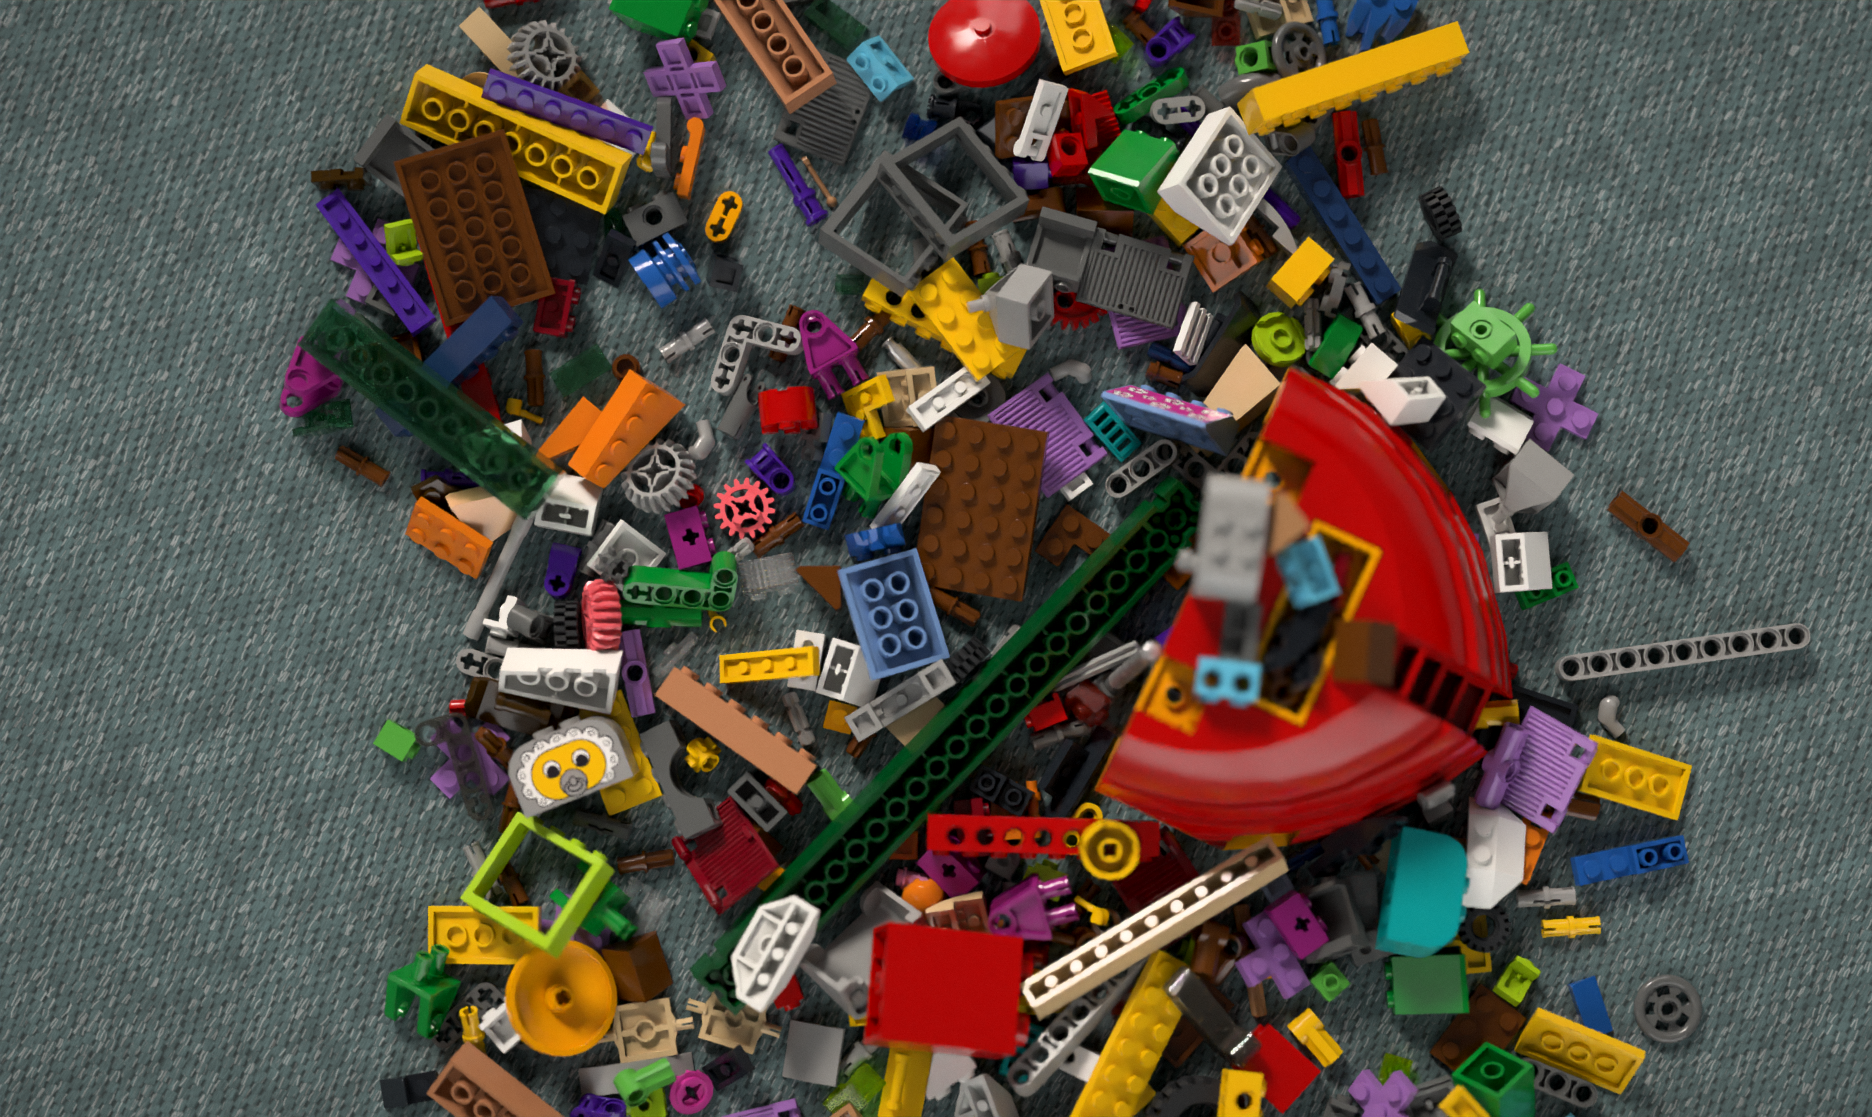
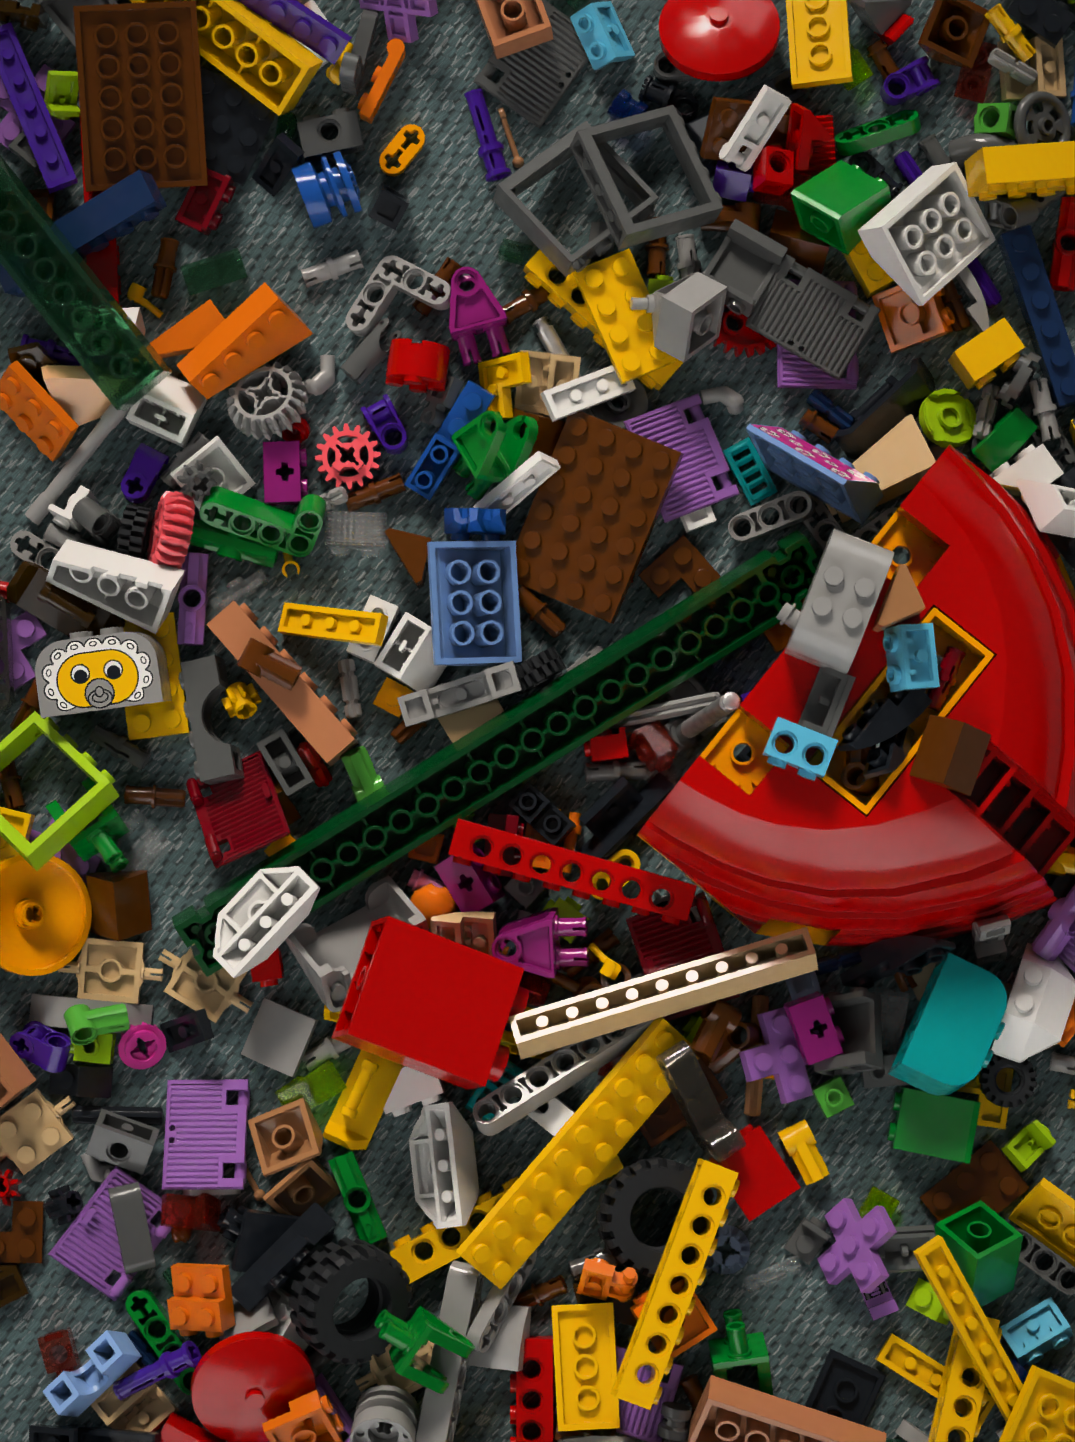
camera: 20 degrees right, 0 degrees up
(495, 746) = (28, 637): reddish brown axle -> none
(623, 364) = (259, 276): reddish brown plate -> none
(715, 717) = (264, 662): none -> reddish brown piece
(1125, 849) = (630, 916): yellow brick -> none
(1178, 116) = (900, 160): light grey beam -> none
(1194, 337) = (862, 392): white tile -> none

